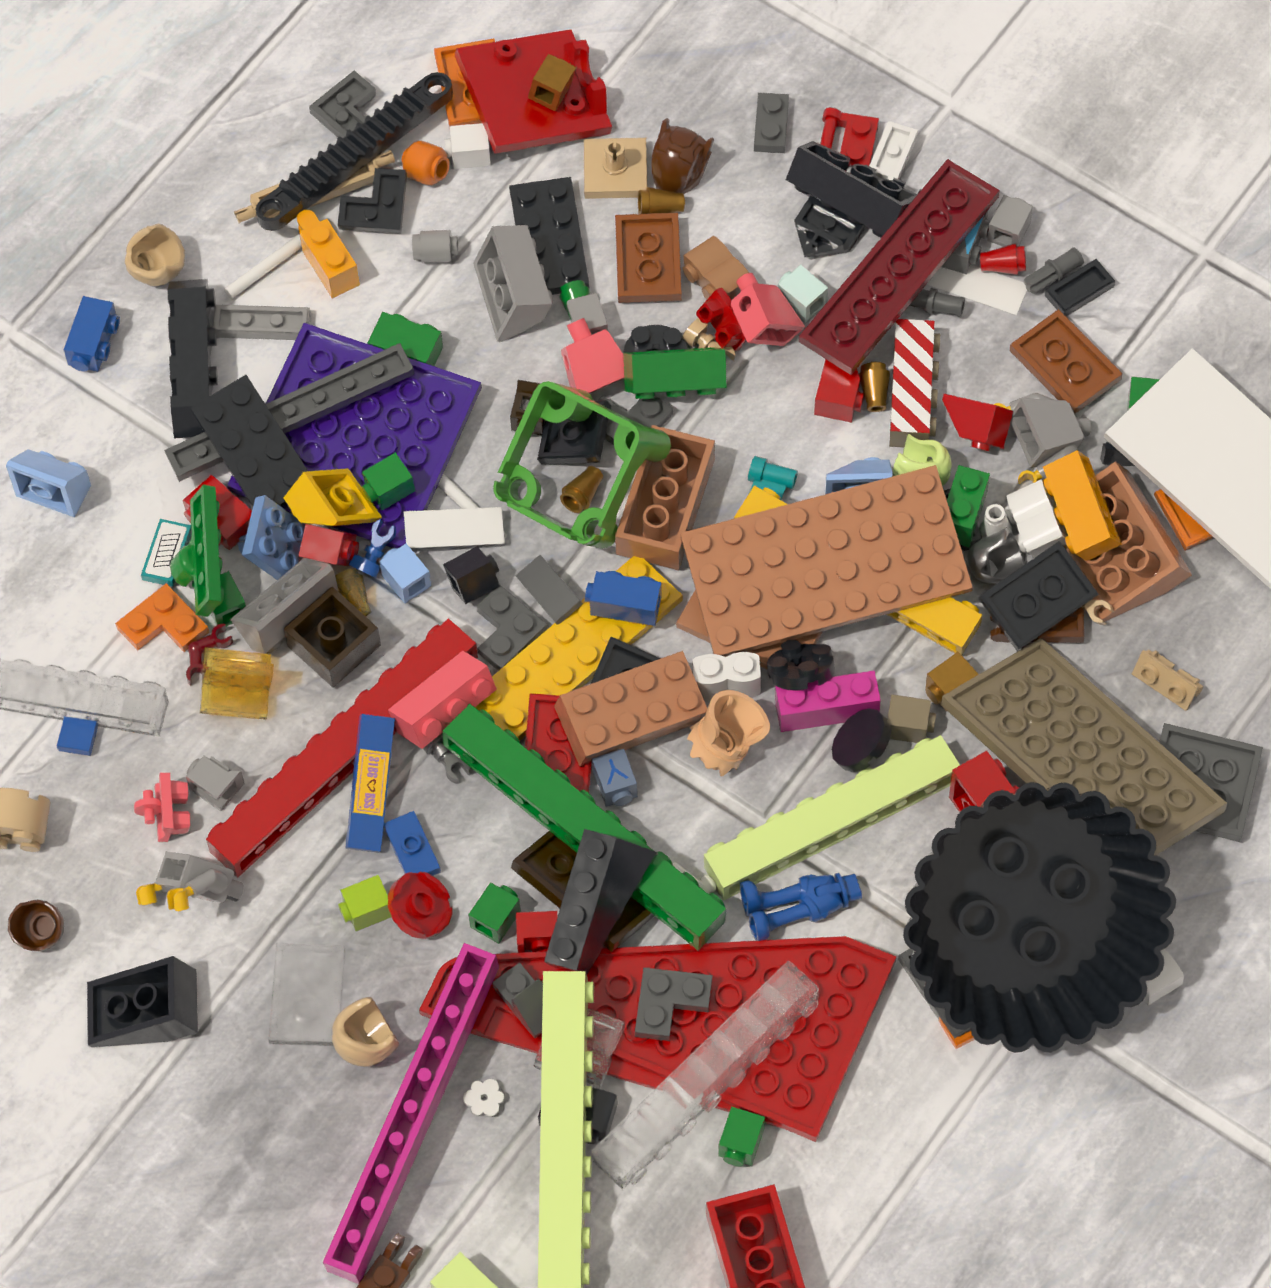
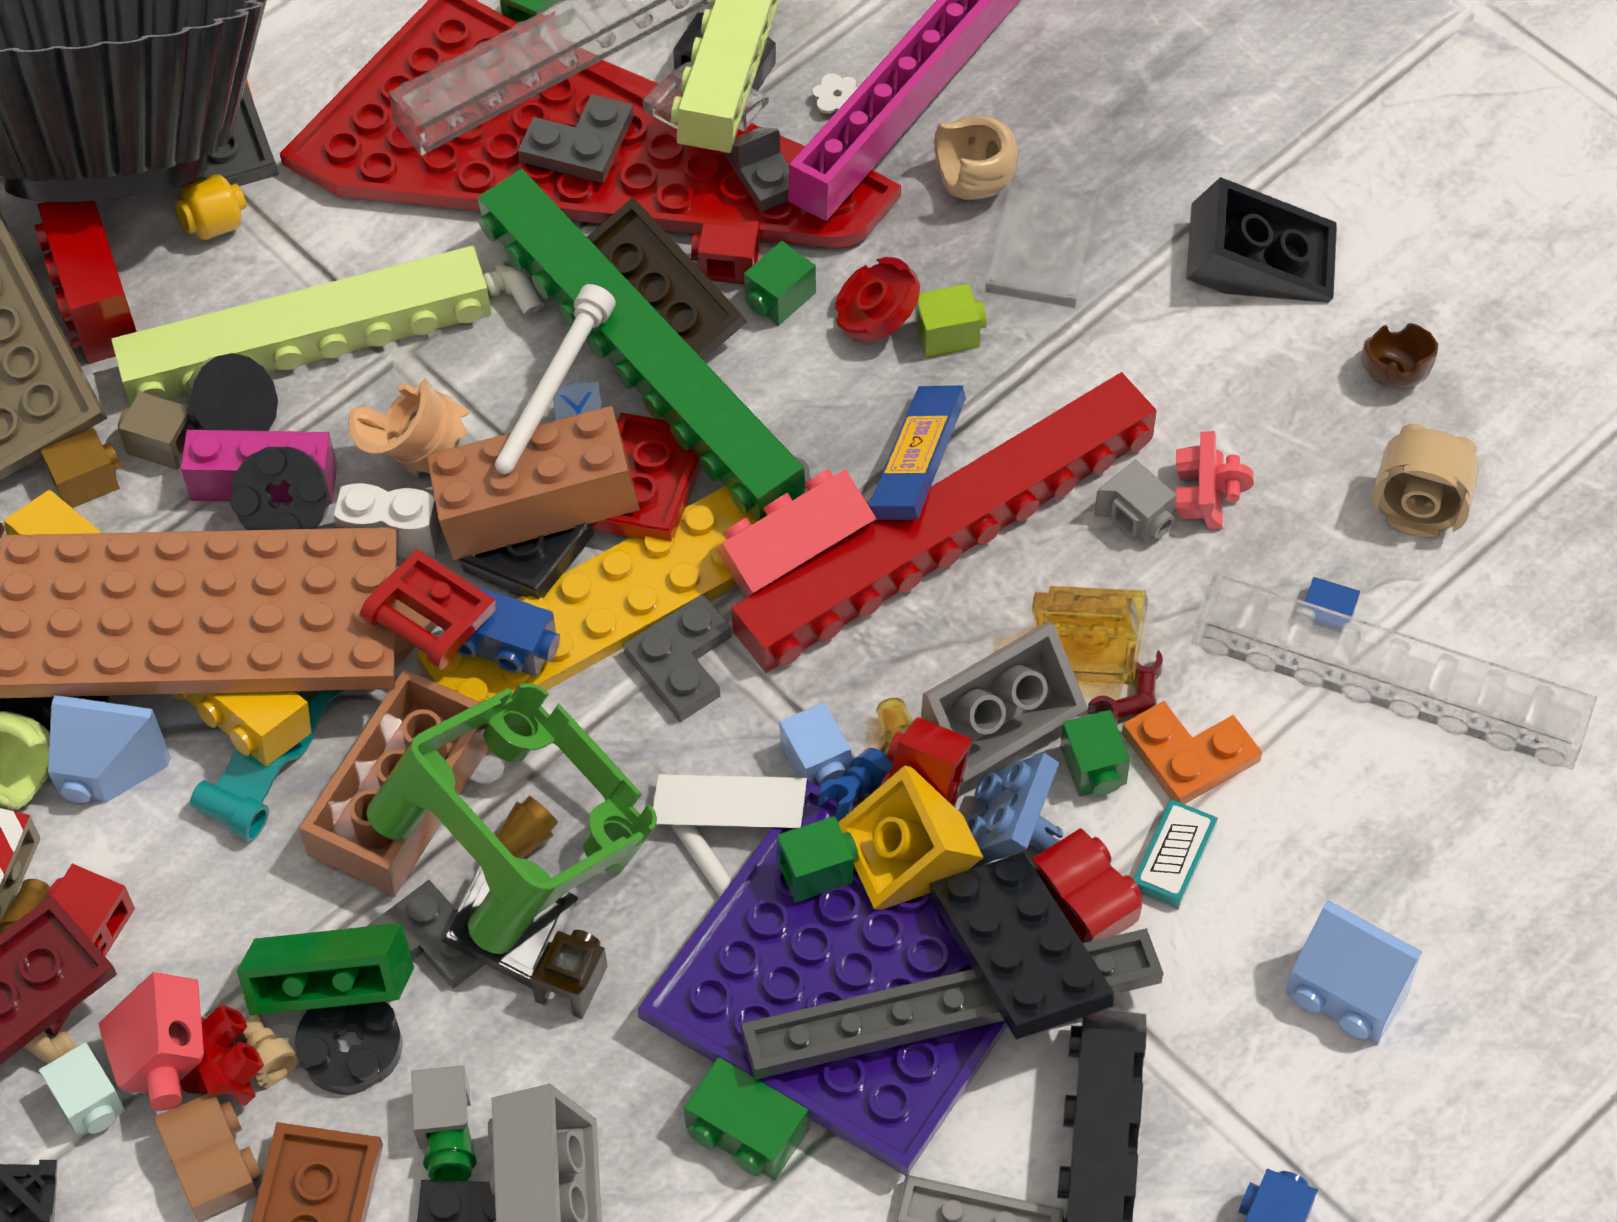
camera: 170 degrees left, 5 degrees down
(190, 876) = (1177, 356): light grey torso -> none
(200, 558) = (1121, 792): green plate -> none
(332, 637) = (929, 646): dark brown brick -> none
(411, 845) = (874, 389): blue plate -> none
(472, 574) = (715, 720): black brick -> none
(549, 589) = (610, 689): dark grey slope -> none
(592, 359) = (451, 1018): coral torso -> none
(595, 898) = (647, 228): black wedge -> none
(614, 815) = (591, 309): none -> white piece
(663, 582) = (437, 596): none -> red plate
(817, 899) = (359, 238): blue piece -> none

